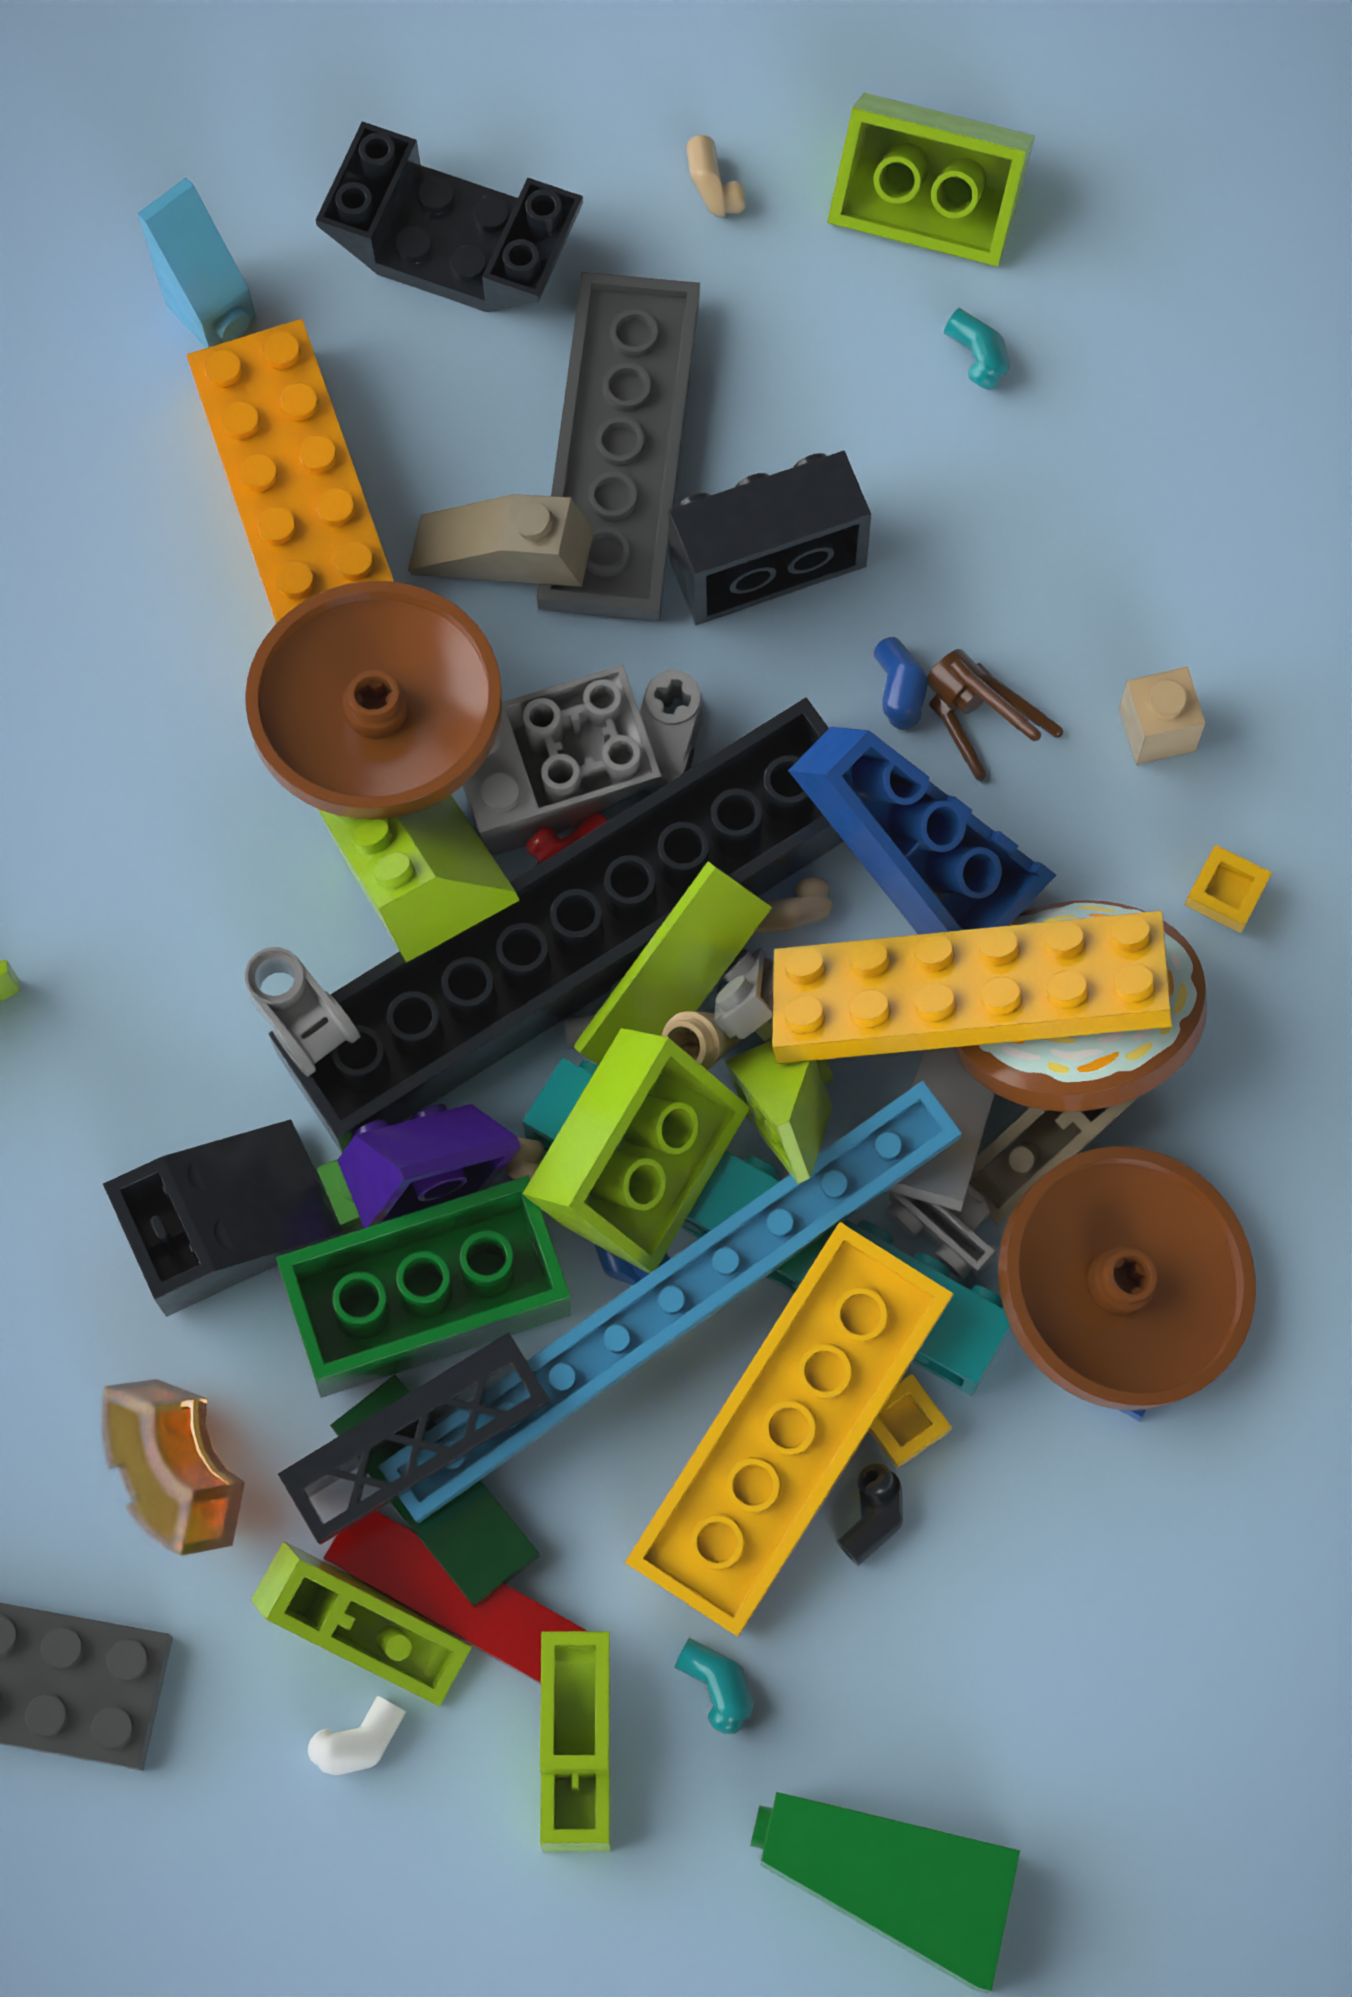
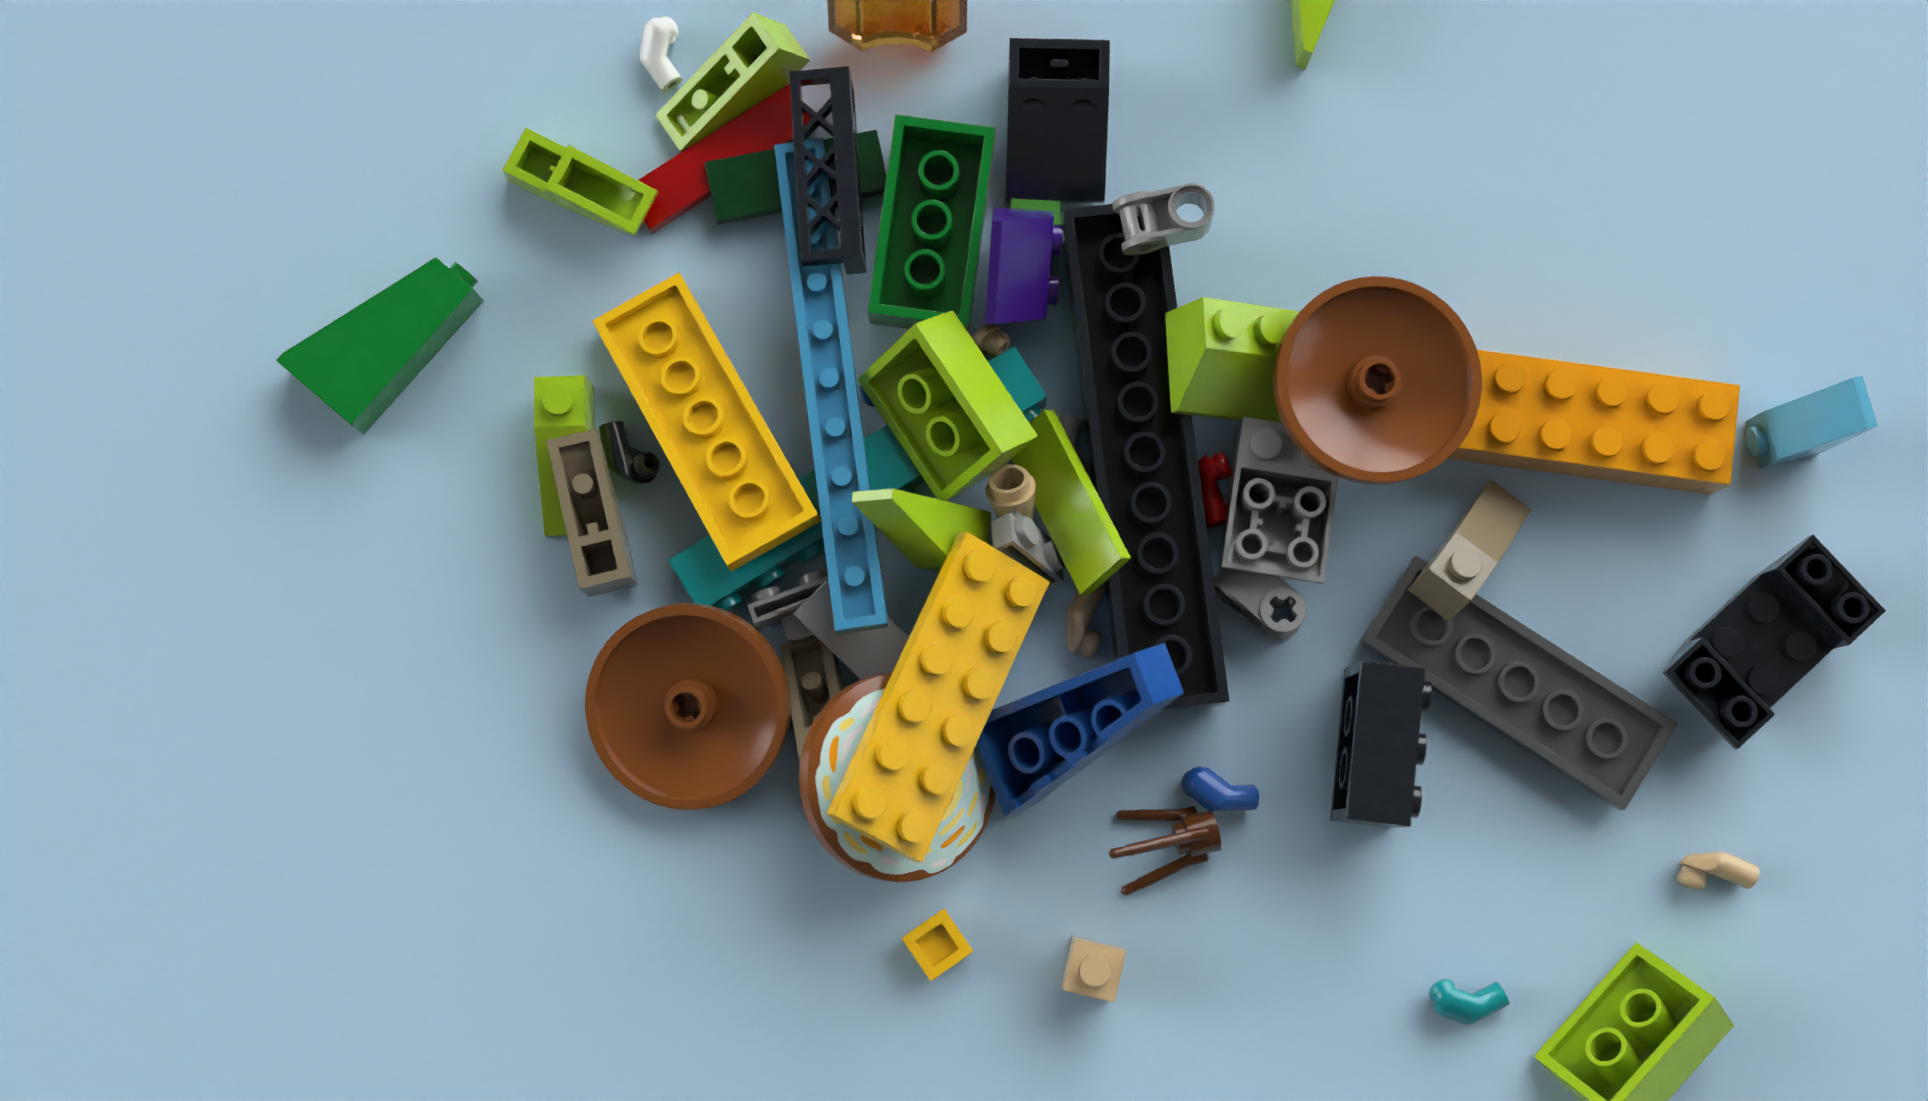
camera: 115 degrees right, 10 degrees up
(725, 1684) = (569, 301): teal arm -> none
(908, 1423) = (672, 509): yellow plate -> none
(912, 1582) = (560, 409): none -> lime slope
(971, 1500) = (591, 514): none -> dark tan slope

